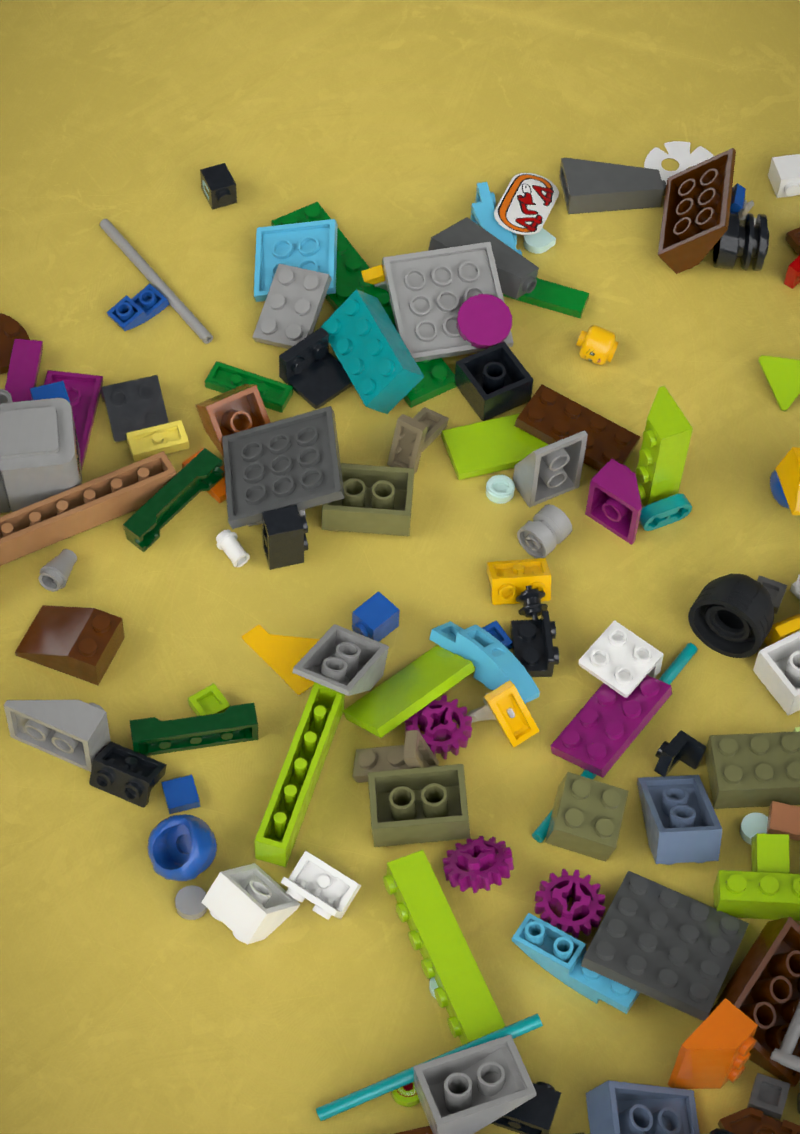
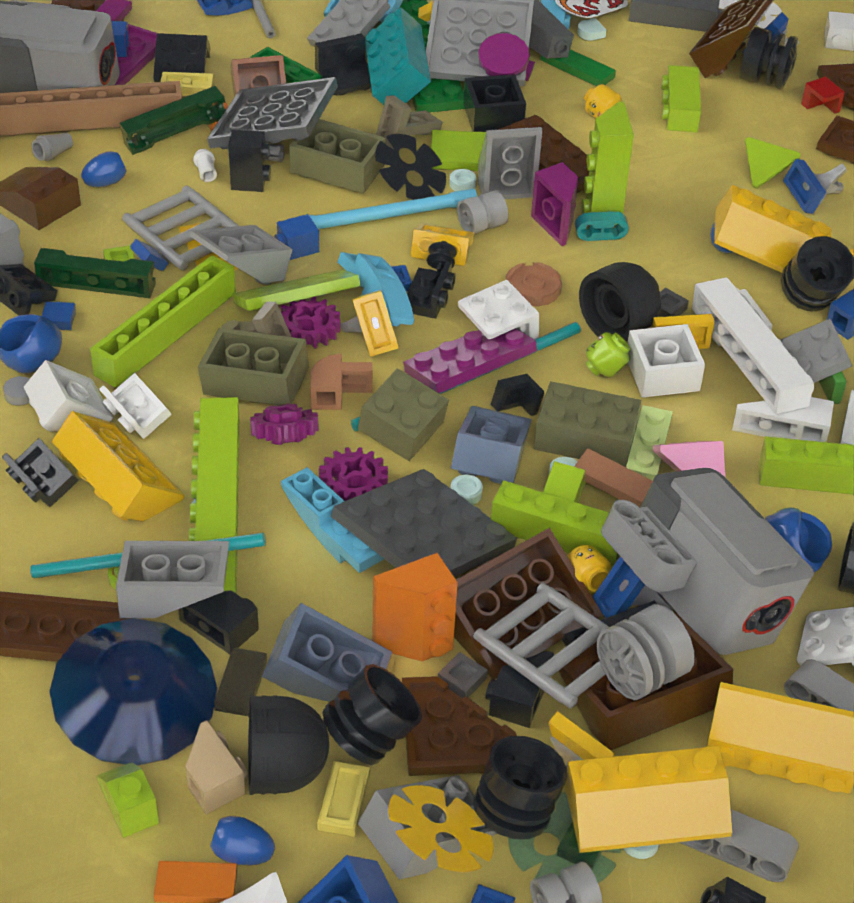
camera: 20 degrees right, 10 degrees down
(133, 589) = (104, 170): none -> blue animal
(236, 688) = (149, 253): none -> blue tile
(244, 669) = (166, 247): none -> light grey bar
(271, 999) = (41, 472): none -> bracket
(339, 968) = (115, 468): none -> yellow slope
(439, 509) = (396, 173): none -> black piece
(495, 792) = (333, 377): none -> nougat brick
(502, 520) = (392, 210): none -> medium azure piece
(628, 603) = (536, 283): none -> nougat tile
(672, 315) = (681, 98): none -> lime brick
(676, 878) = (468, 487): none -> light aqua tile
(742, 679) = (607, 354): none -> lime head

